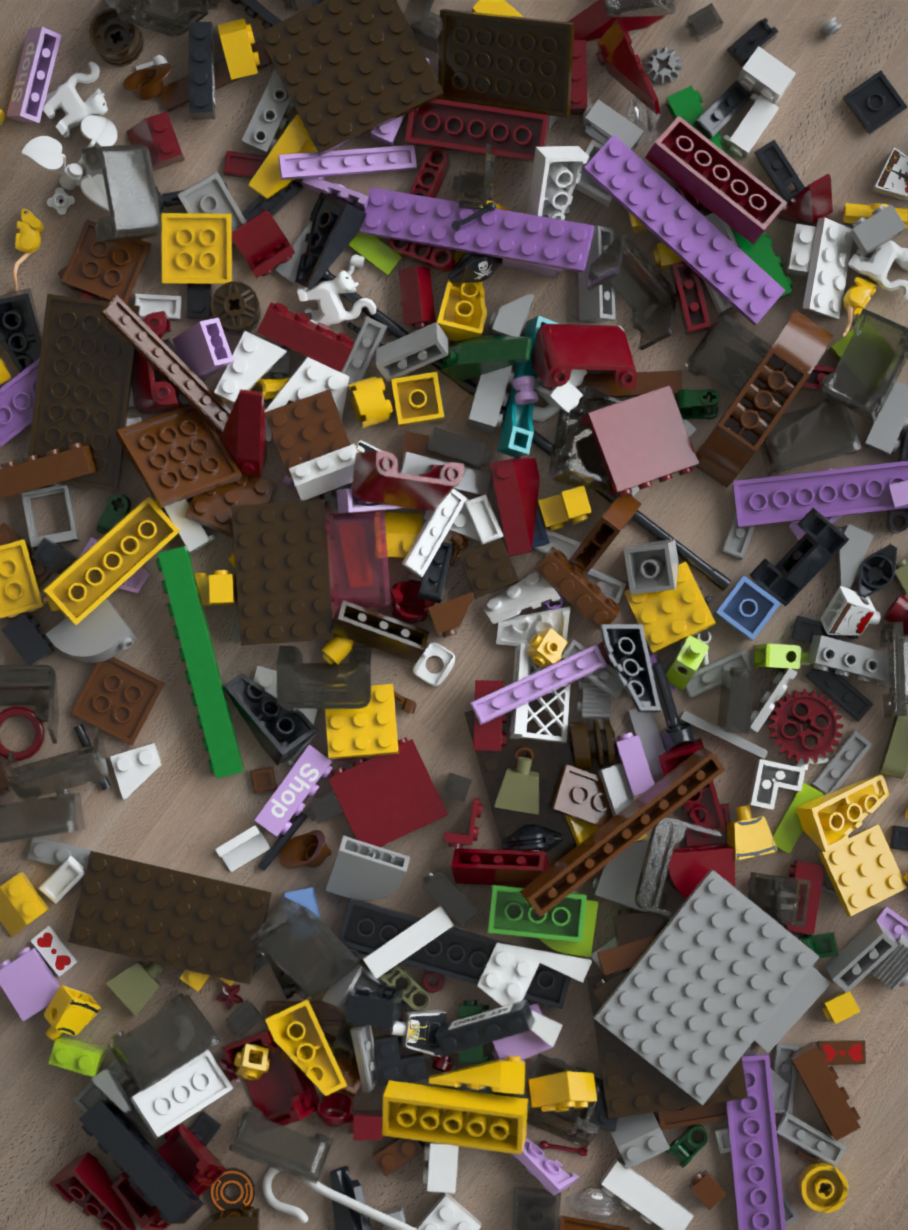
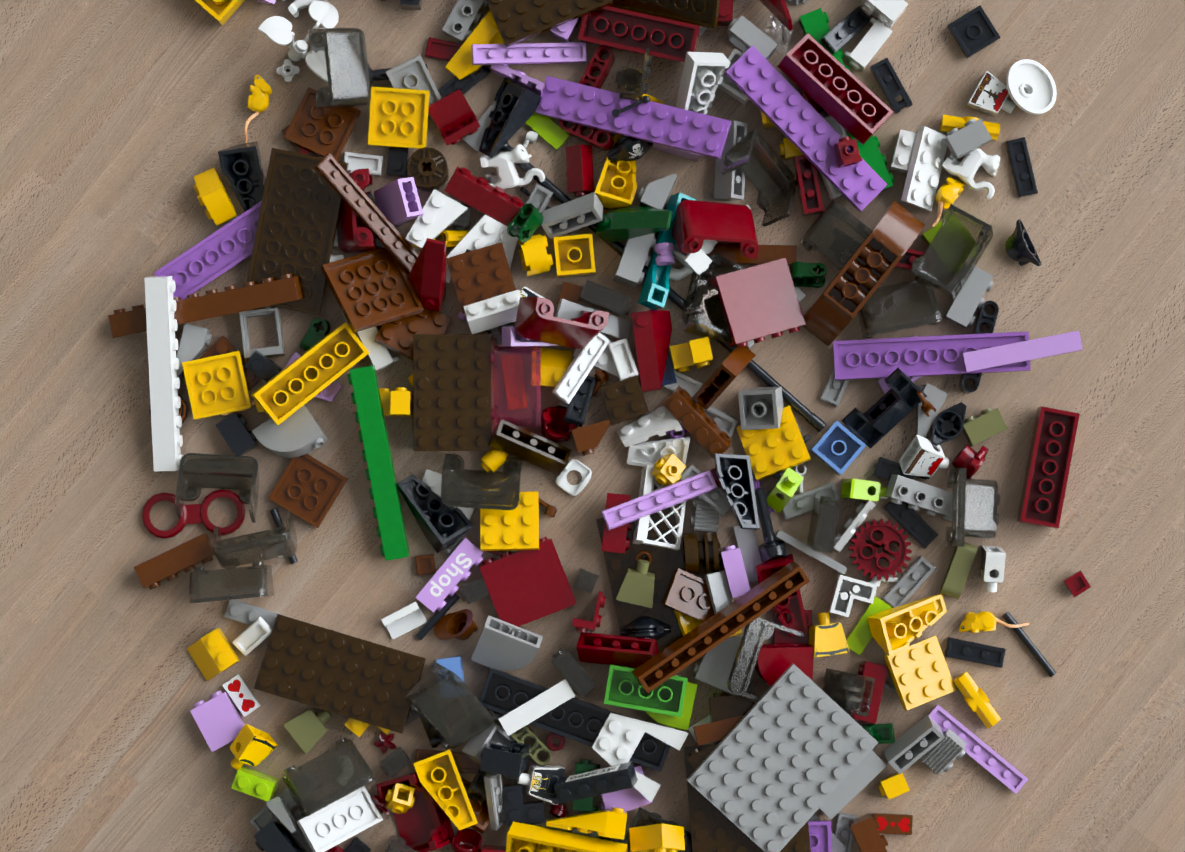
camera: 10 degrees right, 0 degrees up
(135, 767) = (318, 547): white wing -> none
(159, 138) = (373, 23): dark red slope -> none
(358, 364) = (526, 222): none -> dark green piece
(732, 261) = (843, 157): none -> dark red brick
(810, 204) = (913, 113): dark red wedge -> none
(849, 551) = (926, 405): none -> reddish brown hand

